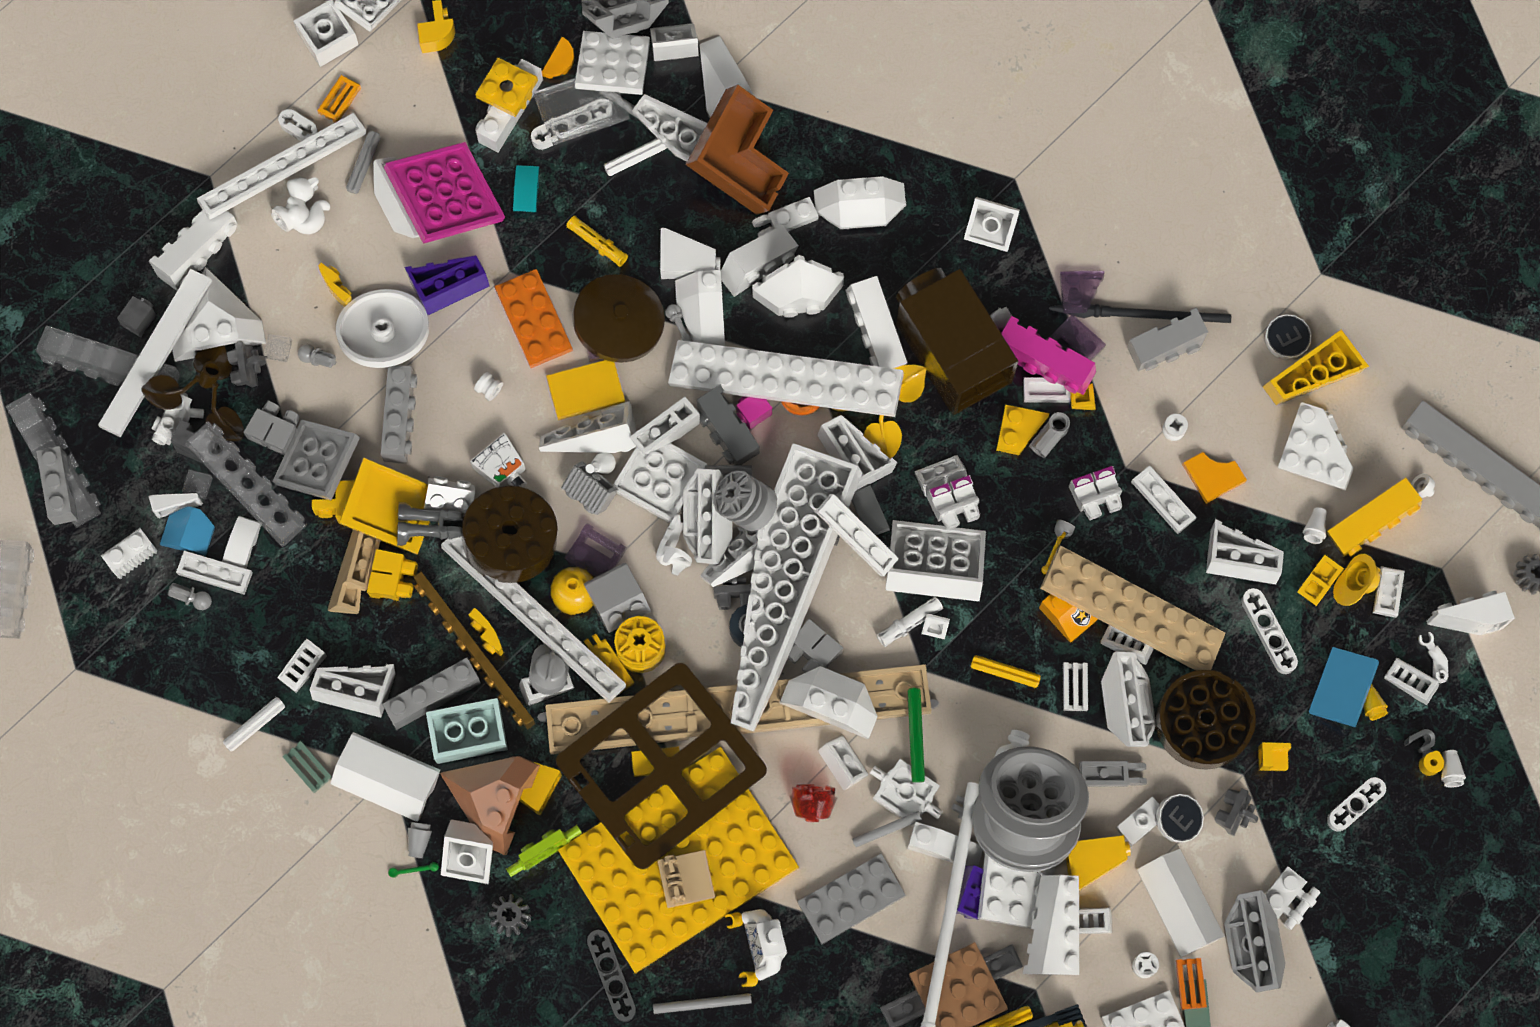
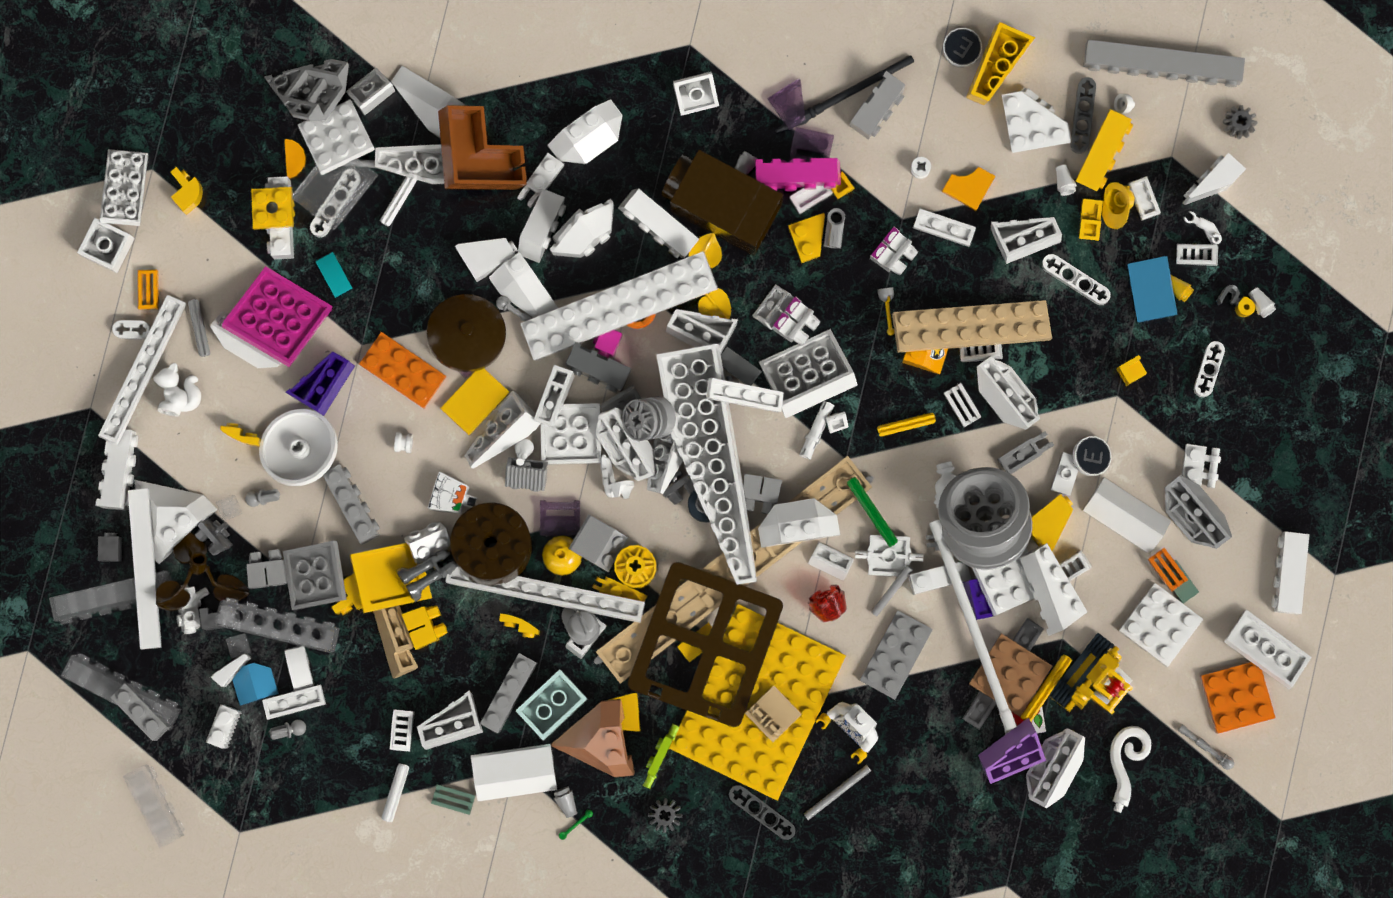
camera: 25 degrees left, 10 degrees up
(466, 853) = (606, 790): white slope -> none
(478, 658) = (509, 641): pearl gold plate -> none
(604, 246) = (412, 283): yellow pin -> none
(1148, 961) = (1130, 573): white wheel -> none
(1199, 743) = (1063, 394): dark brown brick -> none
(1232, 820) = (1129, 435): flat silver hips -> none
(1374, 474) = (1083, 115): none -> dark grey beam

